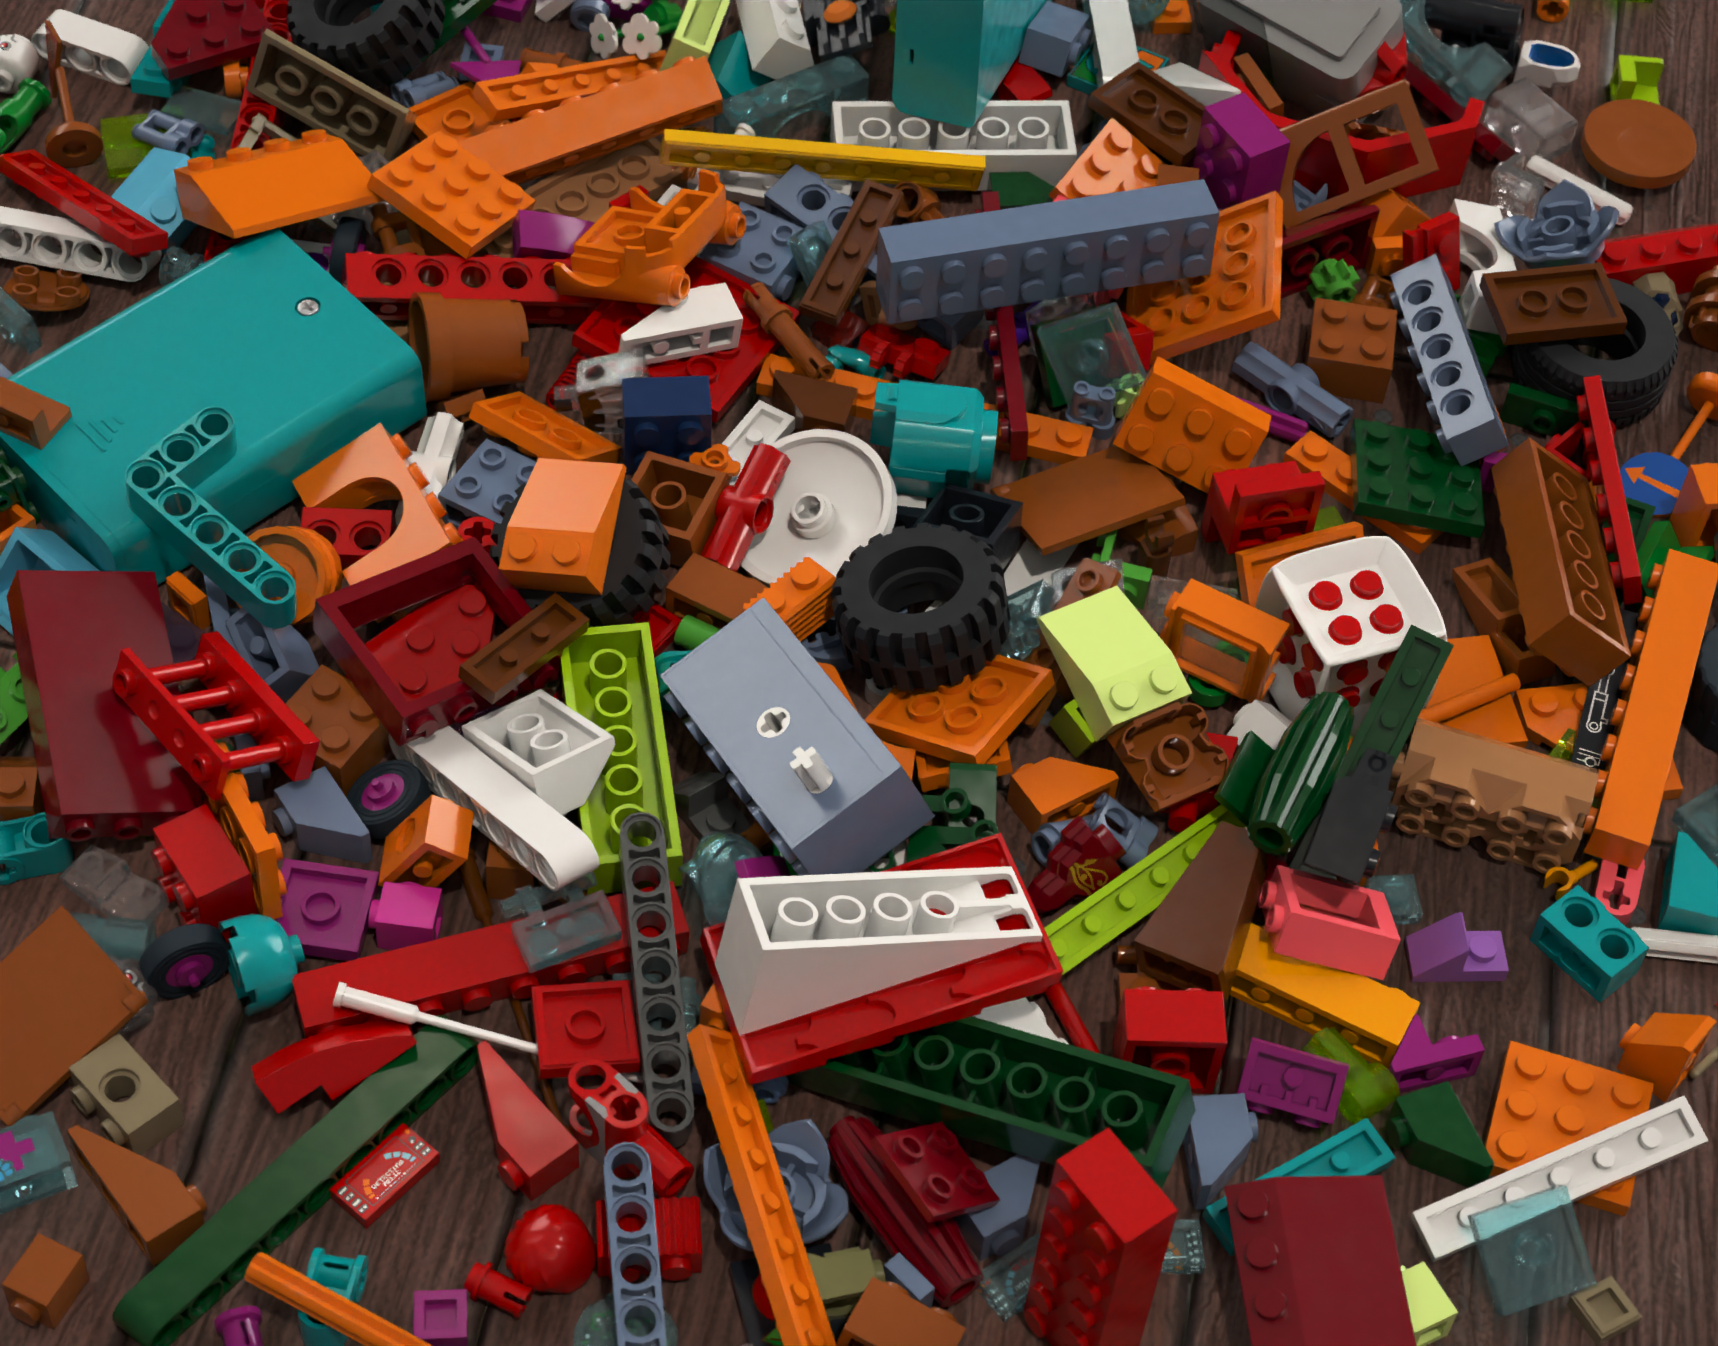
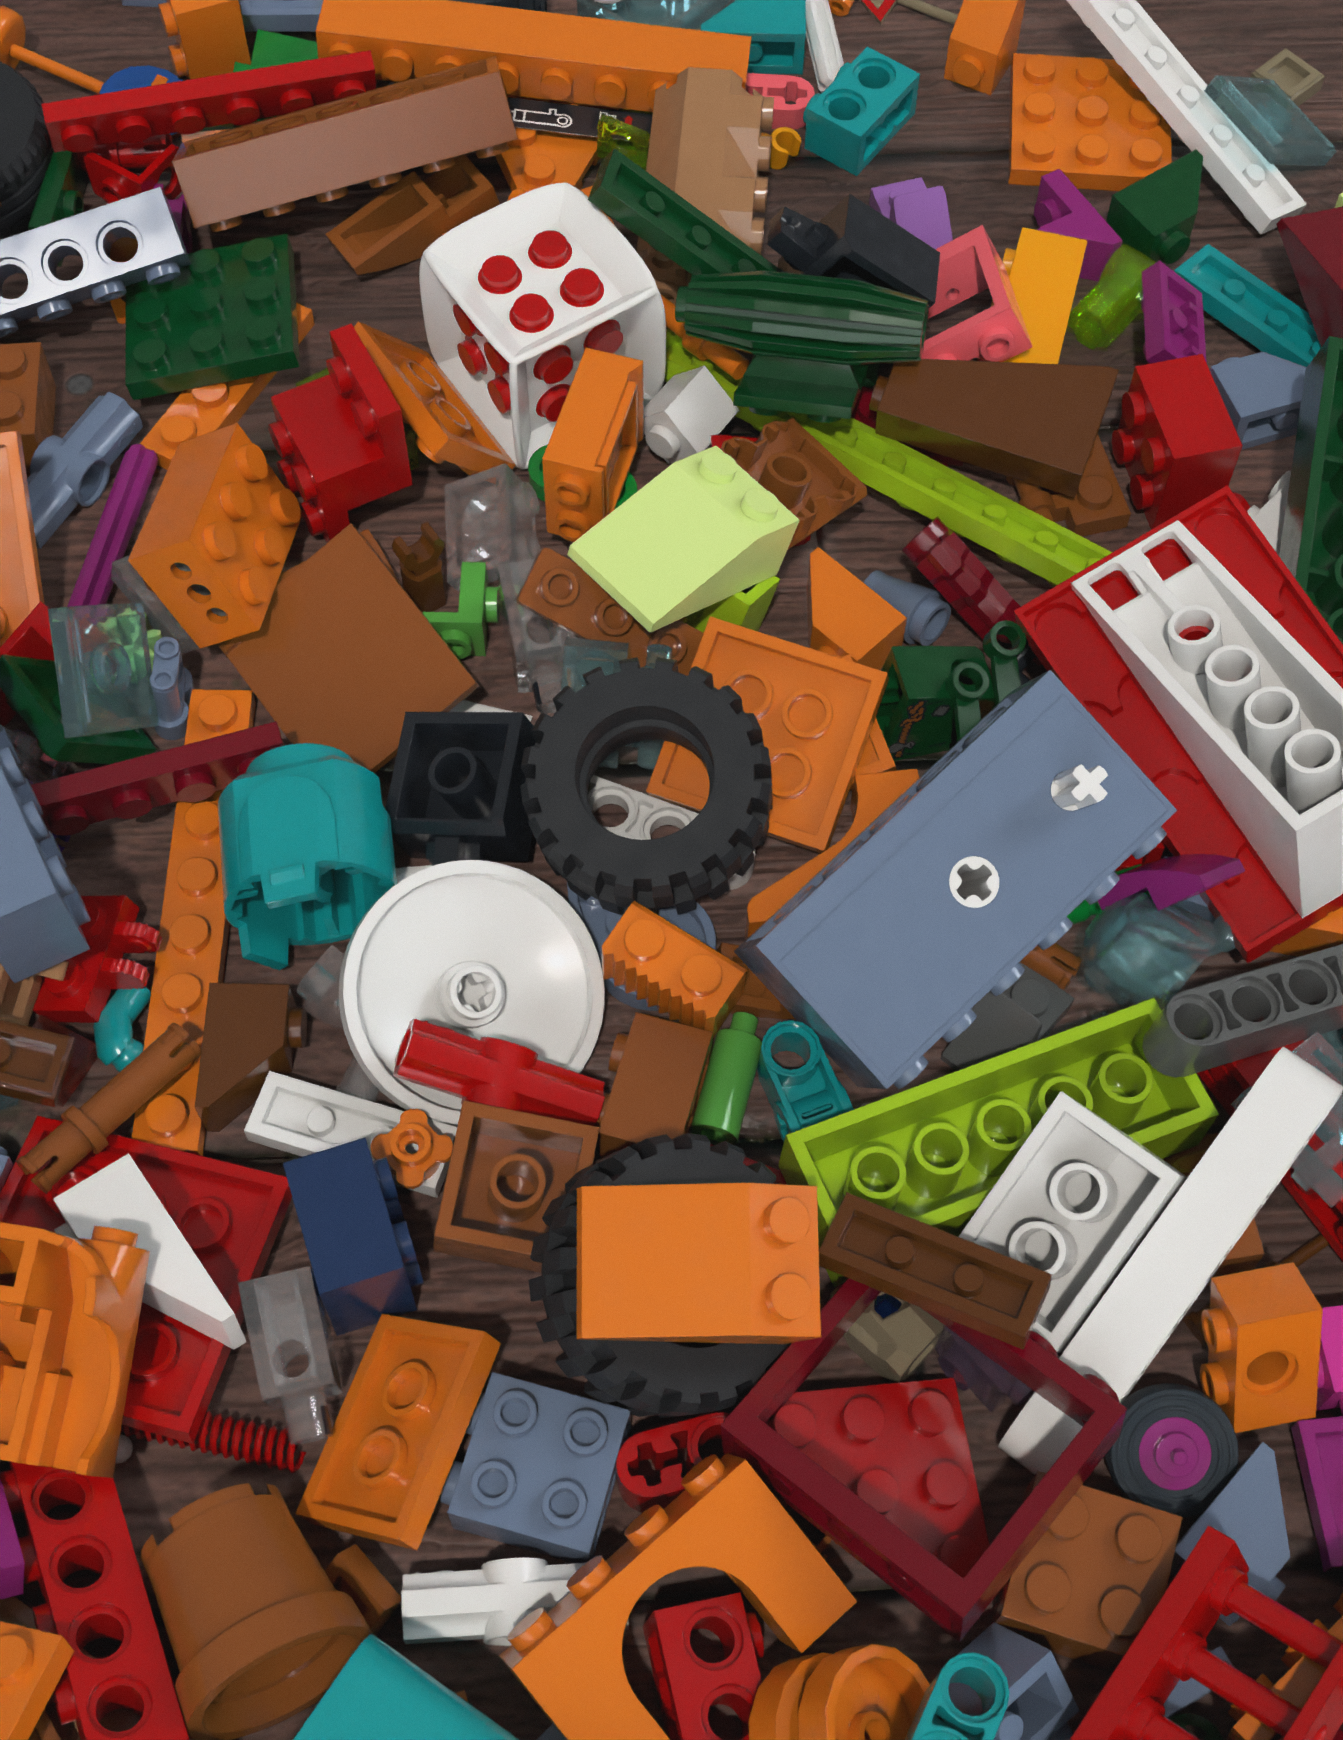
camera: 100 degrees left, 10 degrees up
(1136, 832) = (877, 545): sand blue piece -> none

